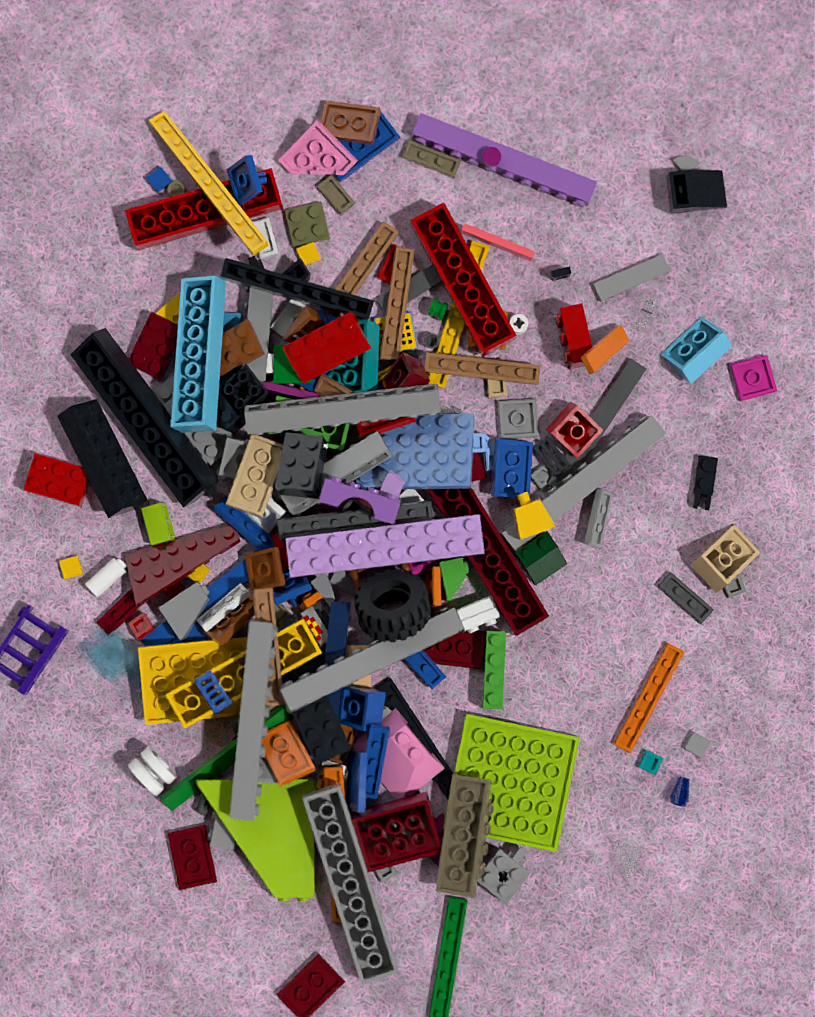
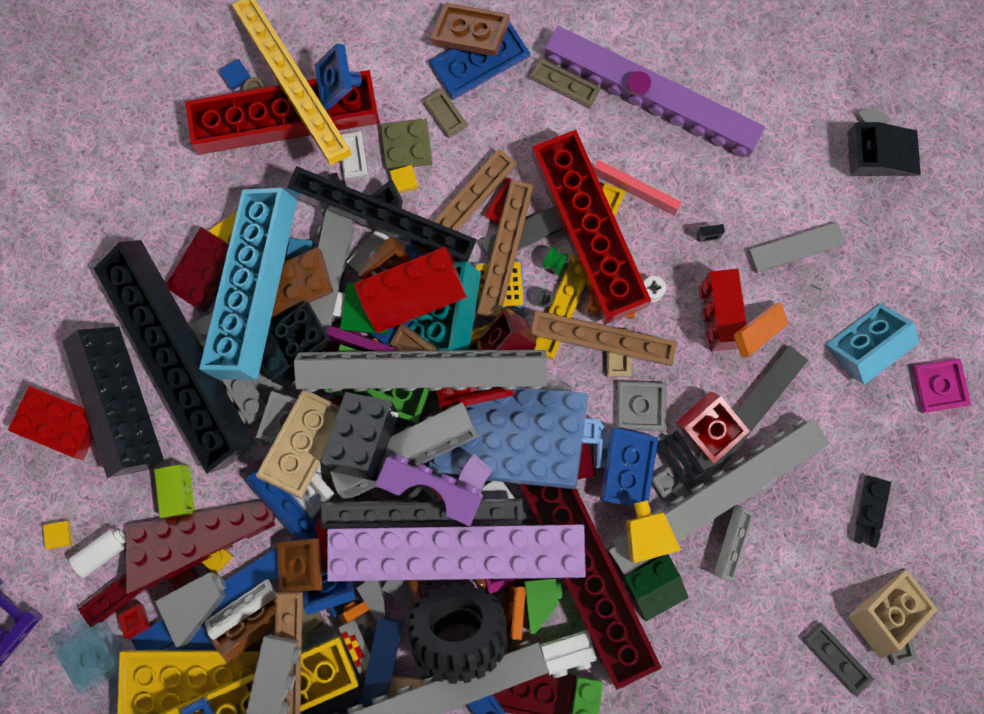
camera: 10 degrees right, 5 degrees down
(317, 154) = (428, 60): bright pink plate -> none

